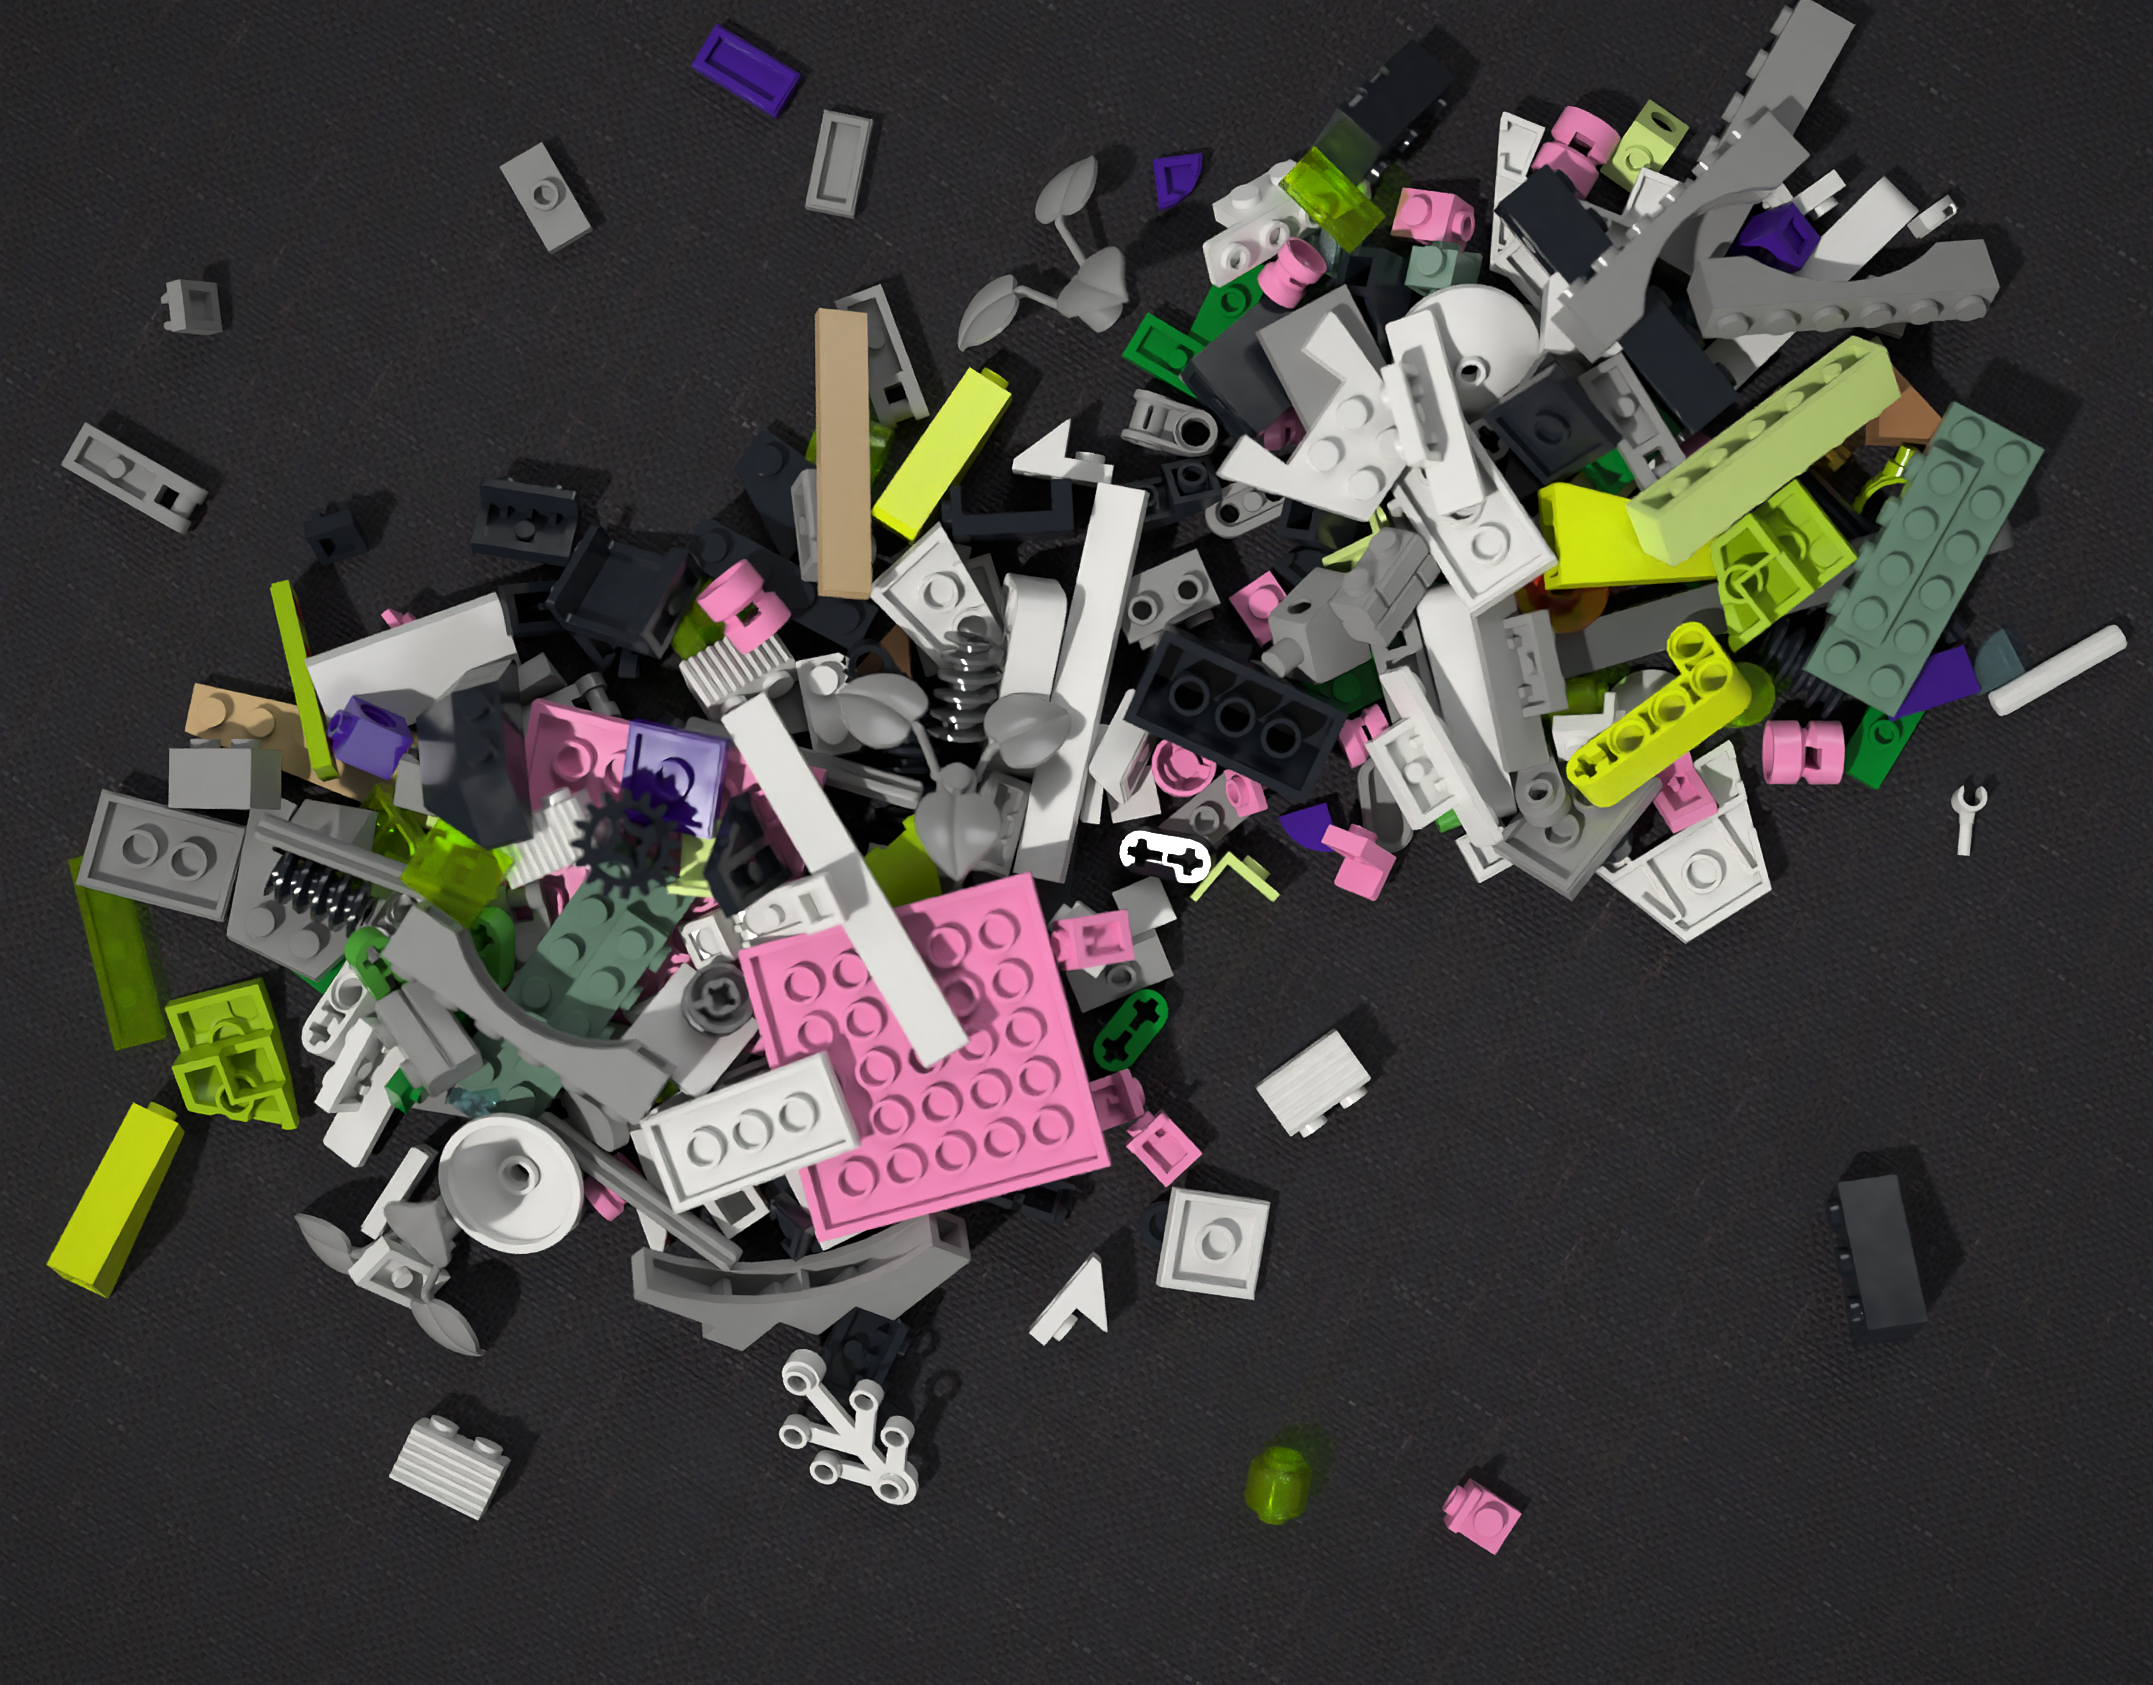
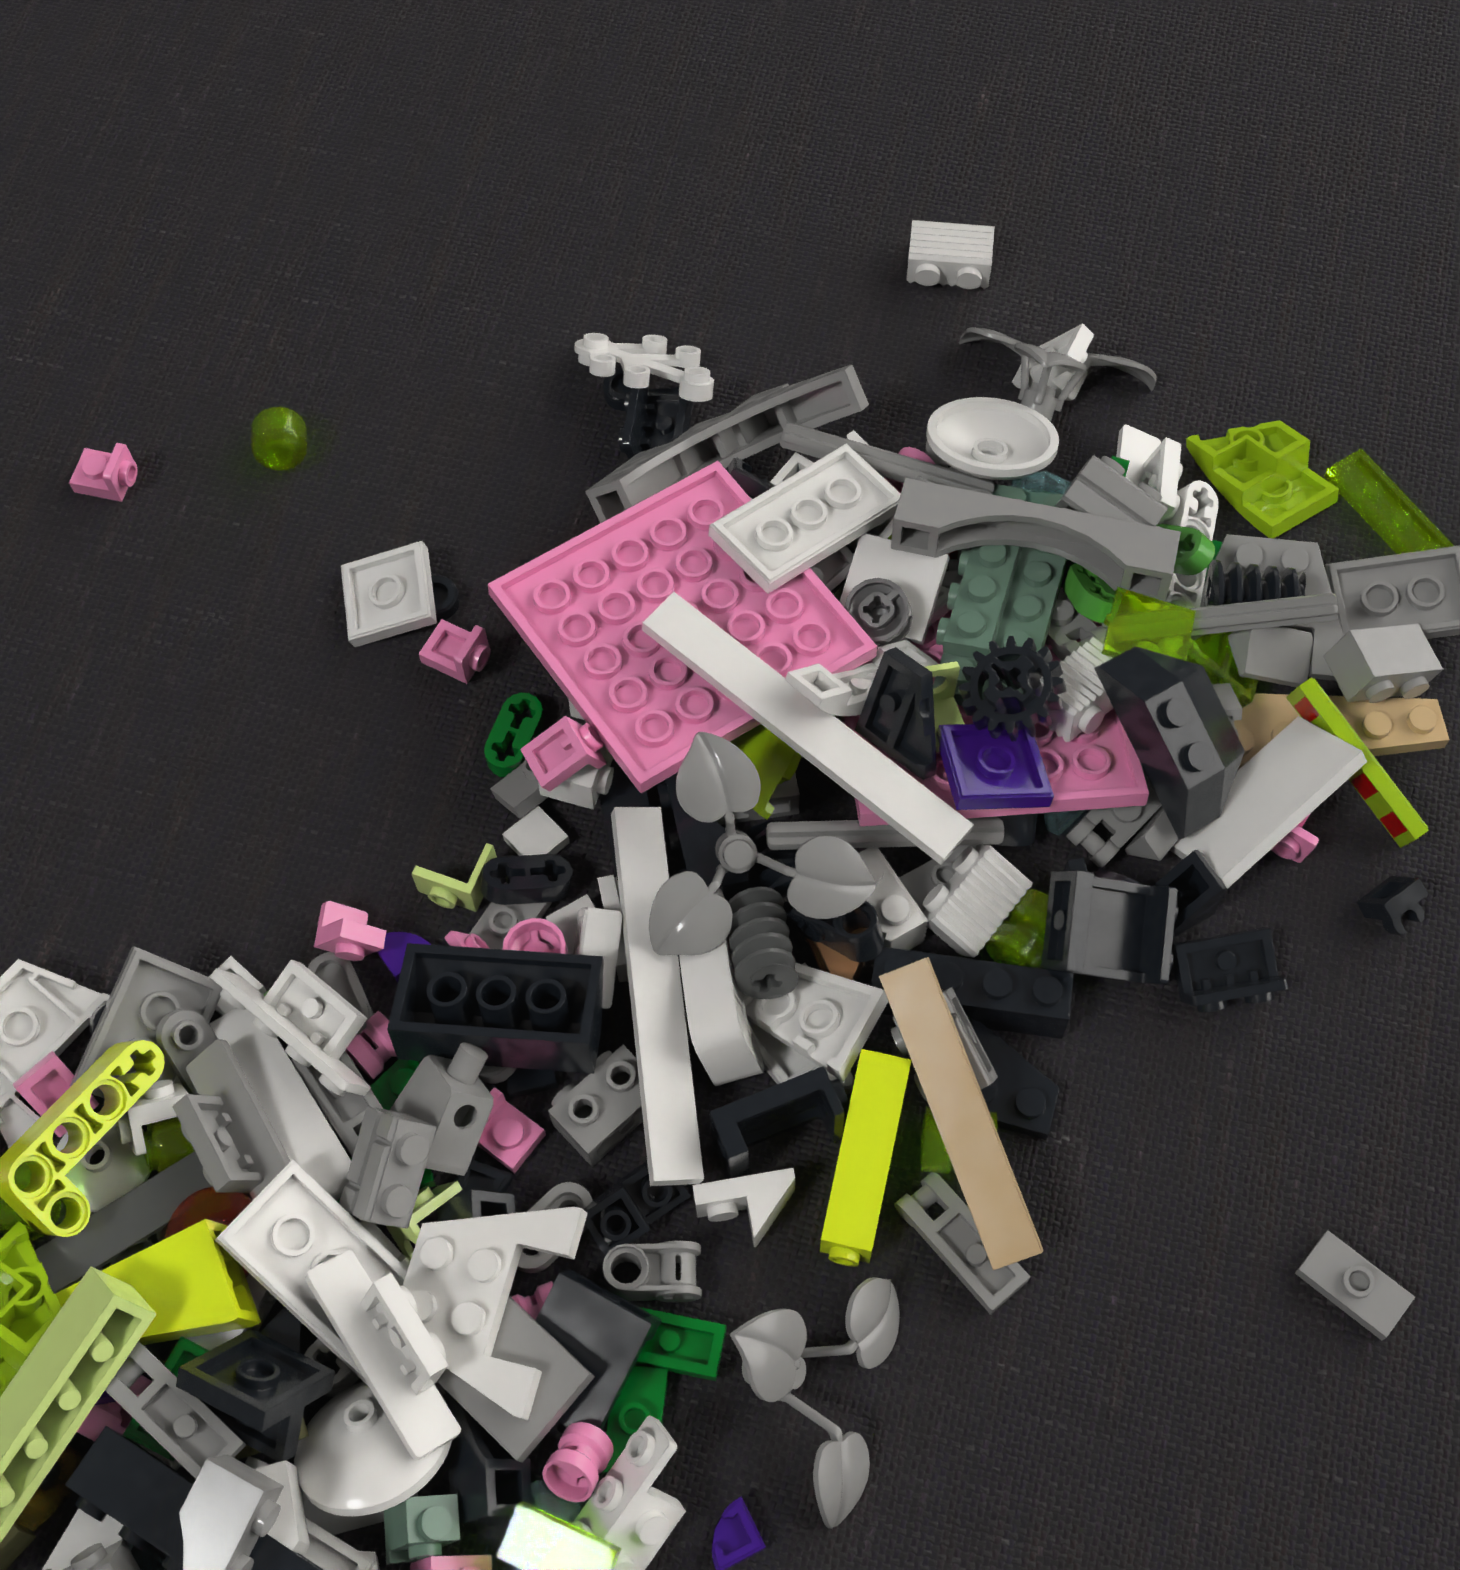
camera: 165 degrees right, 25 degrees down
(118, 1200) = (1301, 338): neon yellow slope -> none
(369, 737) = (1277, 725): dark purple brick -> none
(399, 1188) = (1081, 421): white tile -> none
(731, 594) = (1000, 940): bright pink wheel -> none
(746, 71) = (1218, 1490): dark purple tile -> none
(839, 164) = (1083, 1426): light grey tile -> none
(1011, 800) = (688, 841): light grey plate -> none
(1082, 1292) = (491, 518): white slope -> none
(1118, 1099) = (512, 669): bright pink bracket -> none
(1313, 1084) = (337, 740): white brick -> none

